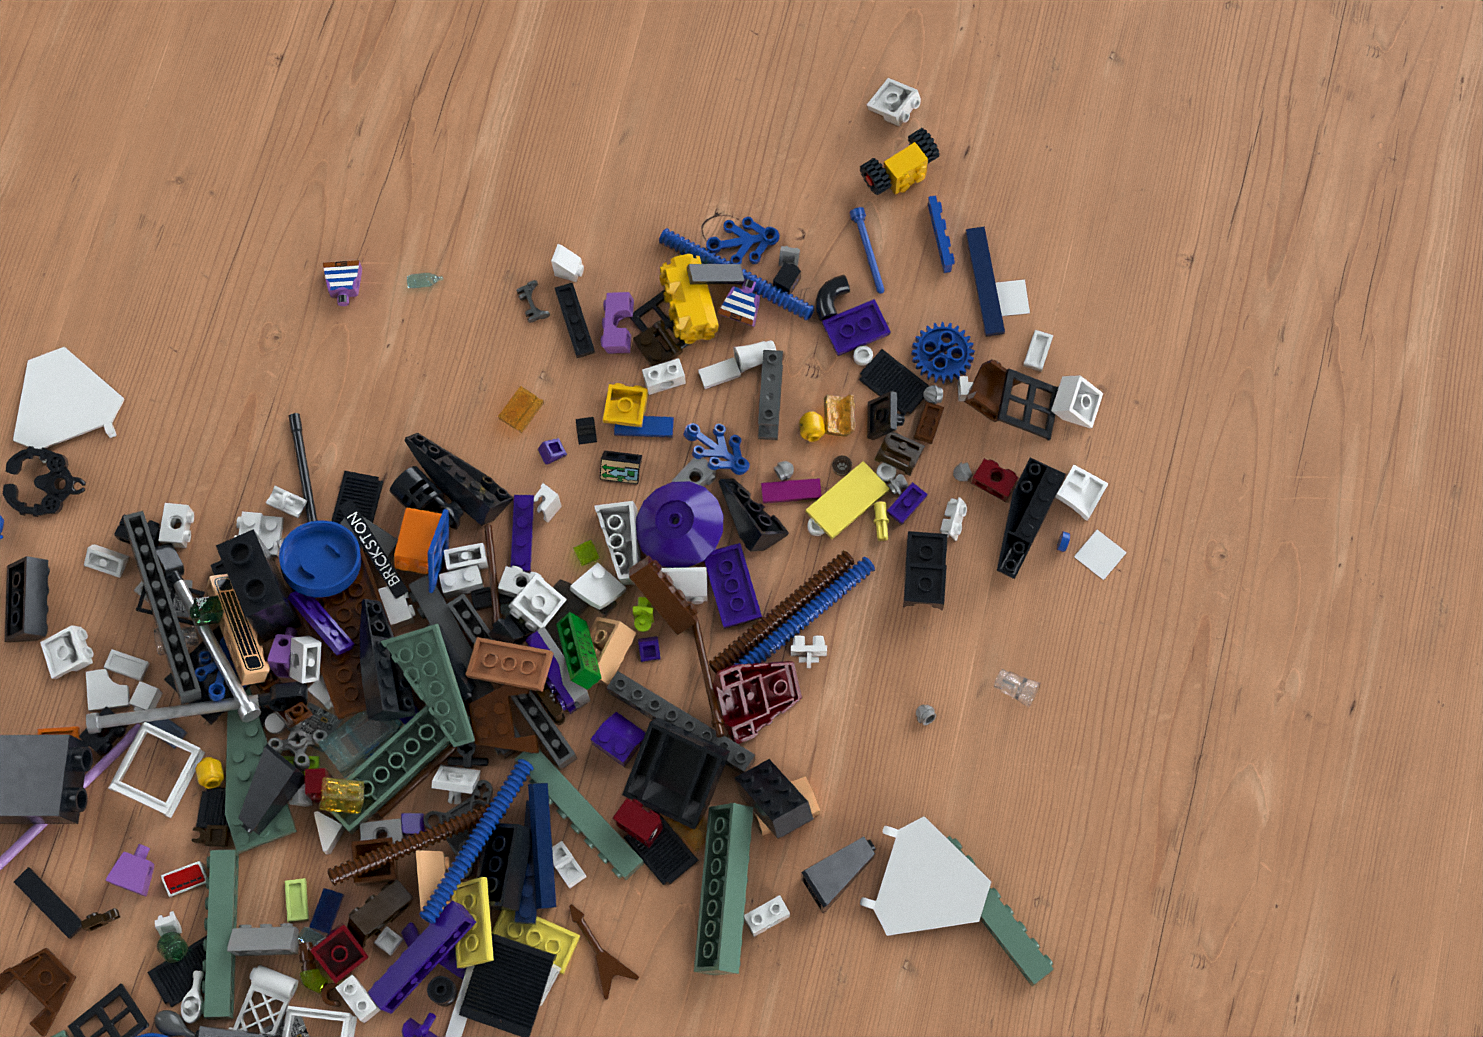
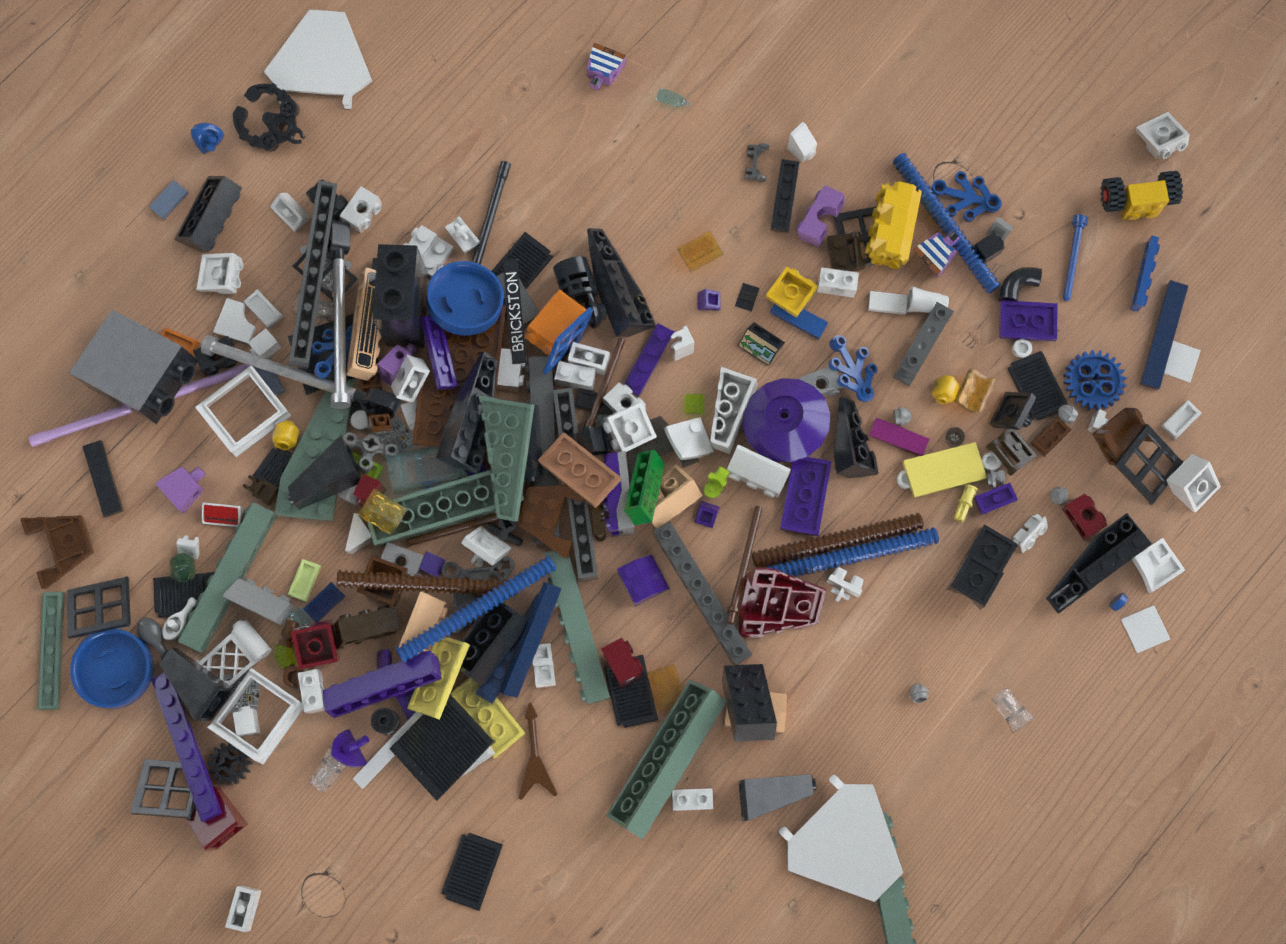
camera: 25 degrees right, 5 degrees up
(97, 920) = (133, 513): dark brown plate -> none
(206, 610) = (348, 296): clear green brick -> none
(388, 940) = (363, 654): white tile -> none
(663, 595) = (741, 474): reddish brown brick -> none
(676, 772) = (675, 635): black slope -> none
(715, 274) = (927, 214): tile -> none

